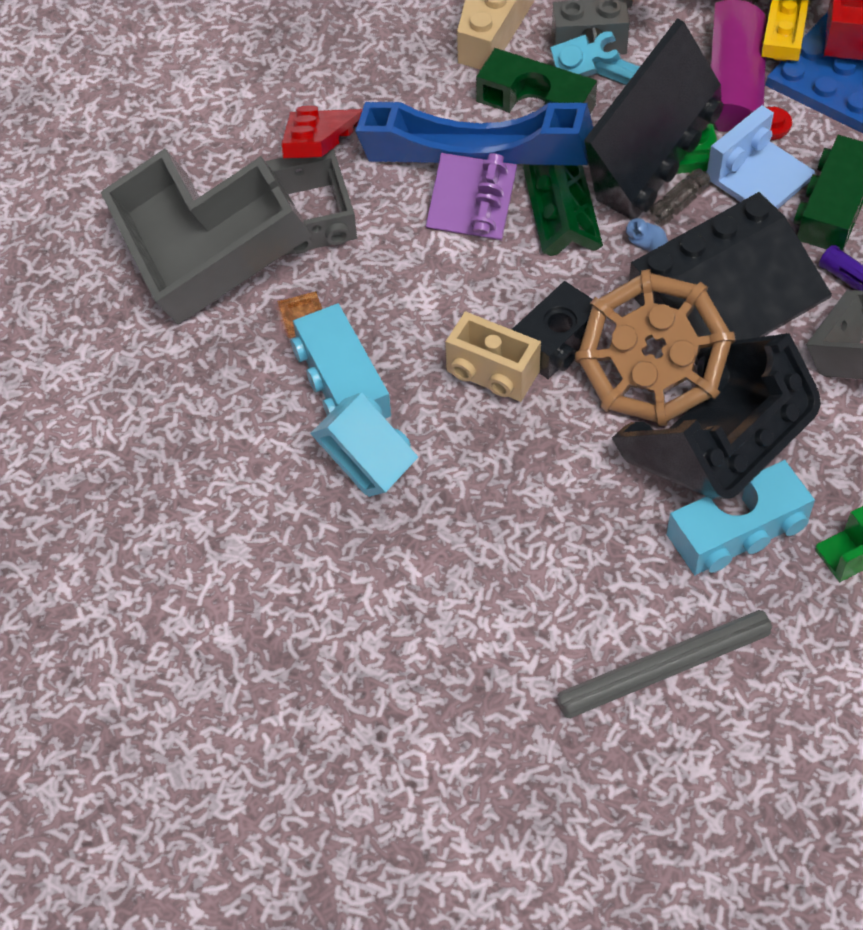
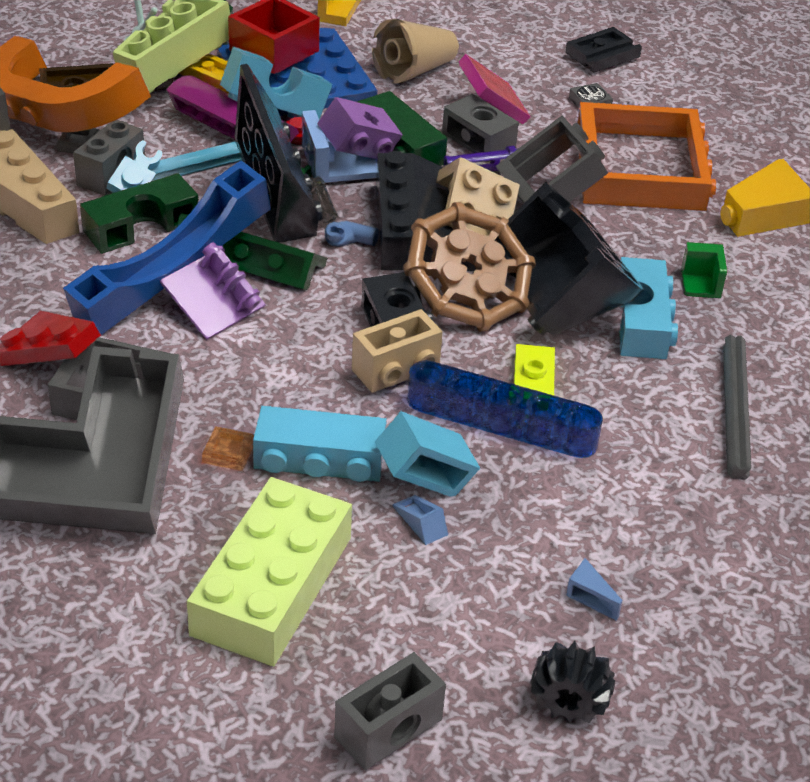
camera: 65 degrees left, 15 degrees down
(66, 564) = (389, 710): none -> dark grey brick
(171, 413) = (270, 571): none -> yellowish green brick
(173, 678) = (572, 682): none -> black gear
(314, 645) = (593, 591): none -> medium blue piece
(316, 485) = (423, 517): none -> medium blue piece
(493, 491) = (504, 409): none -> clear blue beam
(568, 478) = (535, 367): none -> neon yellow plate
(766, 49) = (299, 93): none -> medium azure arch
(766, 301) = (478, 190): none -> tan bracket
(780, 159) = (359, 128): none -> medium lavender brick

